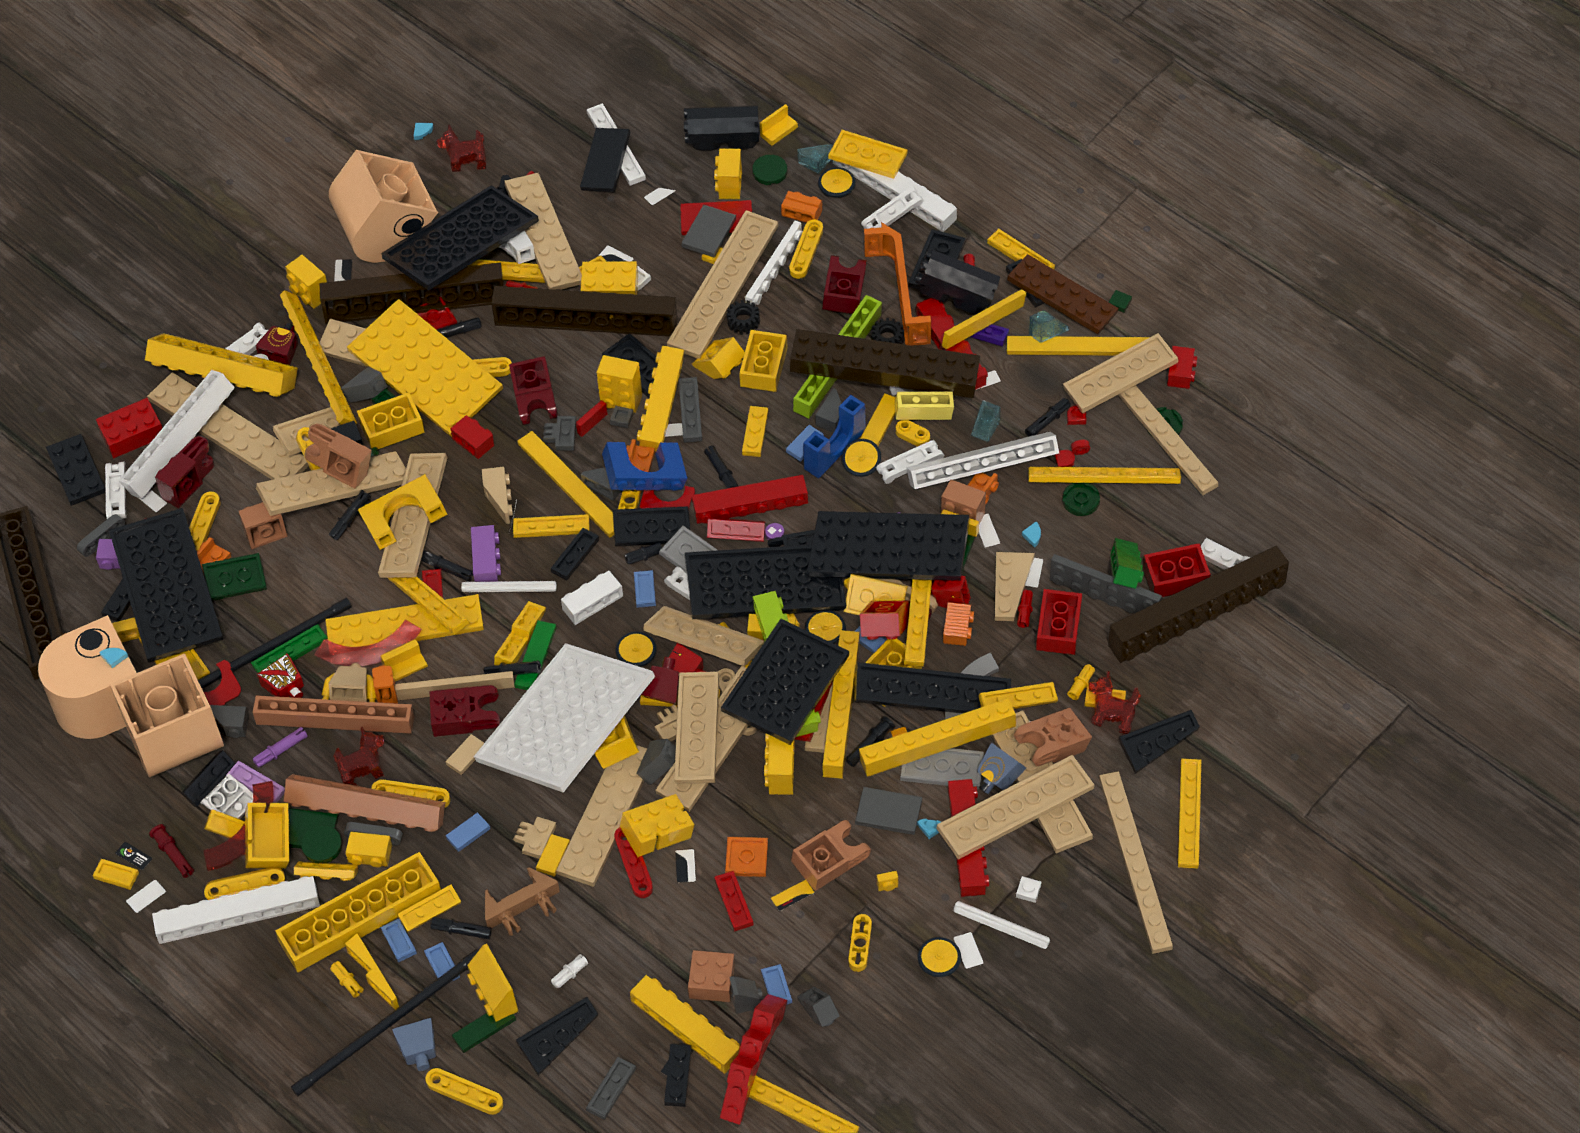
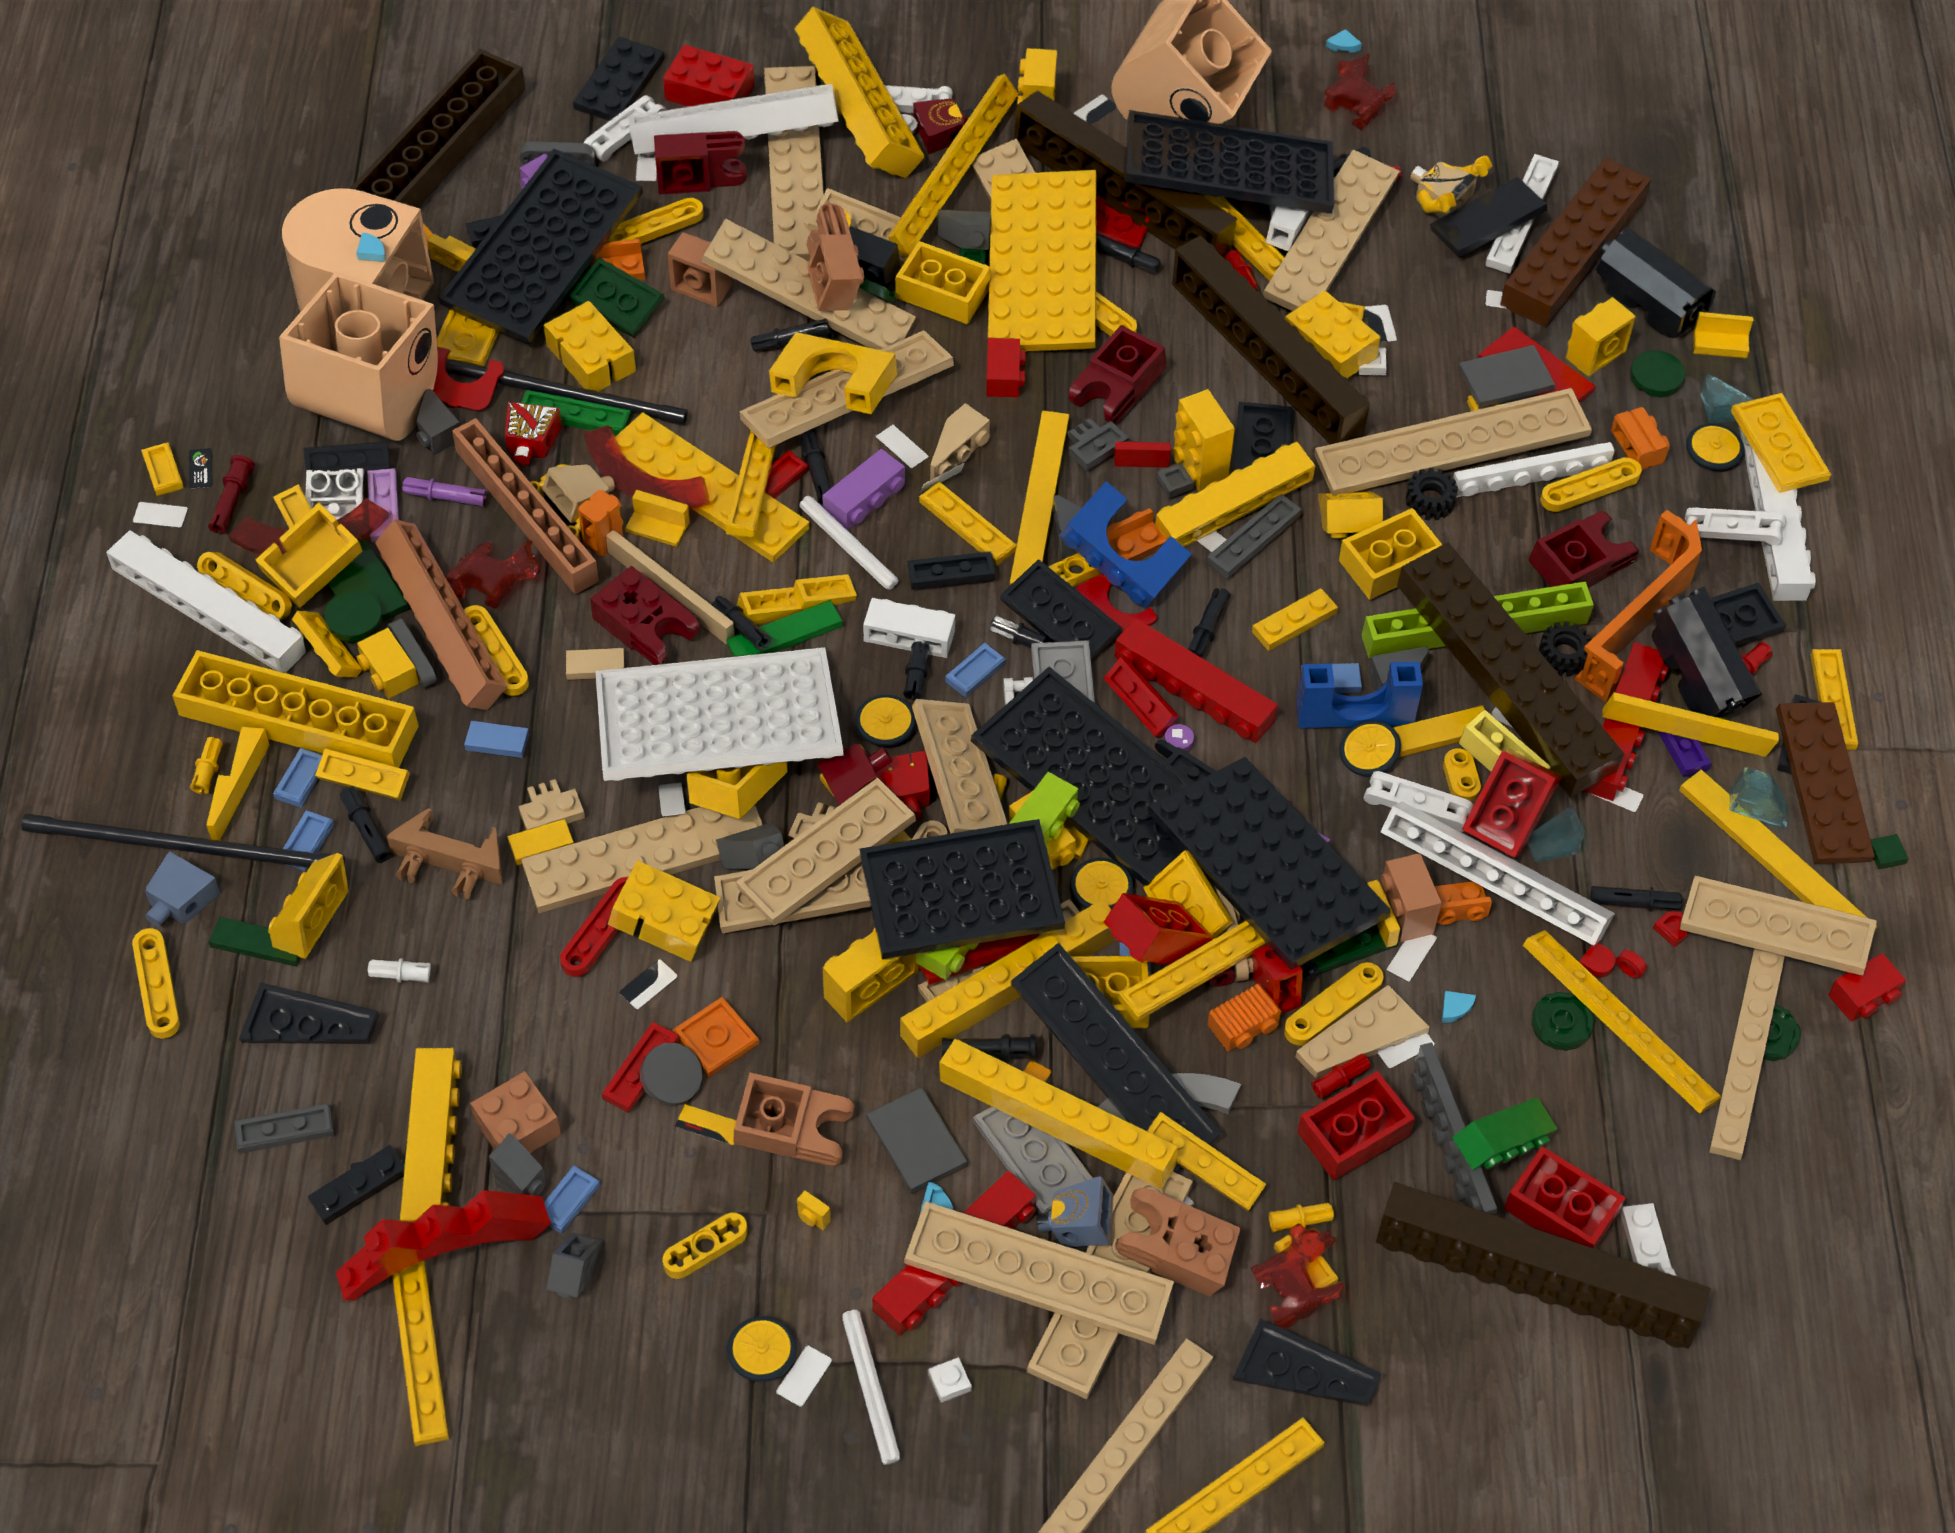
camera: 45 degrees right, 0 degrees up
(260, 610) = (586, 346): none -> yellow piece
(470, 519) = (902, 446): none -> white sticker
(566, 161) = (1448, 186): none -> torso
(589, 778) = (671, 799): none -> white sticker
(620, 613) = (916, 670): none -> black pin
(659, 137) = (1575, 242): none -> reddish brown brick
(752, 889) = (671, 1074): none -> dark grey tile
(956, 422) = (1511, 802): none -> red brick
(983, 582) = (1333, 1003): none -> yellow plate

